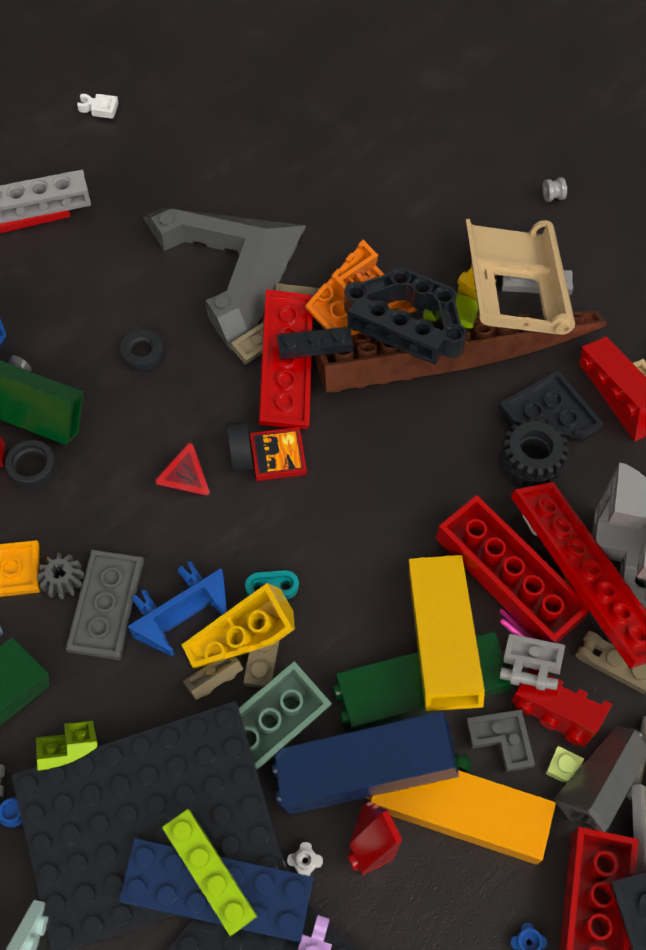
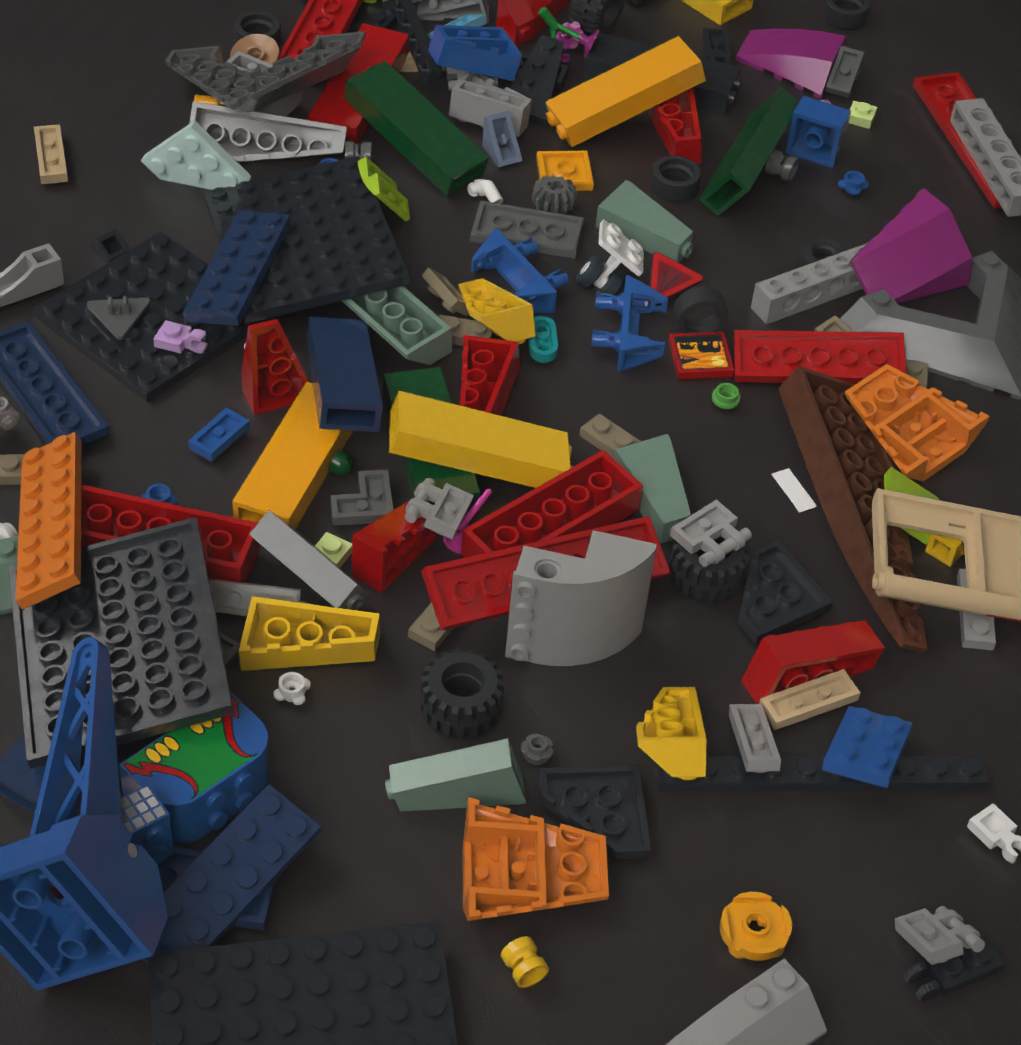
camera: 90 degrees right, 15 degrees down
(34, 313) = (853, 182): none -> blue plate
(46, 642) = (485, 188): none -> white arm
(102, 494) = (646, 222): none -> sand green slope
(162, 512) = (622, 251): none -> white plate
(164, 269) = (915, 253): none -> magenta wedge
(181, 347) = (806, 287): none -> light grey brick
(209, 507) = (627, 340): none -> blue hose
(209, 872) = (251, 249): lime plate -> none
(315, 343) = (834, 367): black plate -> none
(331, 429) = (726, 396): none -> bright green plate
(348, 632) = (488, 373): none -> red wedge
(371, 315) = (852, 426): black brick -> none
(391, 529) = (606, 435): none -> dark tan plate
(428, 393) = (794, 490): none -> white sticker
(437, 890) = (219, 434): none -> blue plate
(441, 493) = (663, 492): none -> sand green slope
(530, 447) = (707, 525): none -> light grey plate

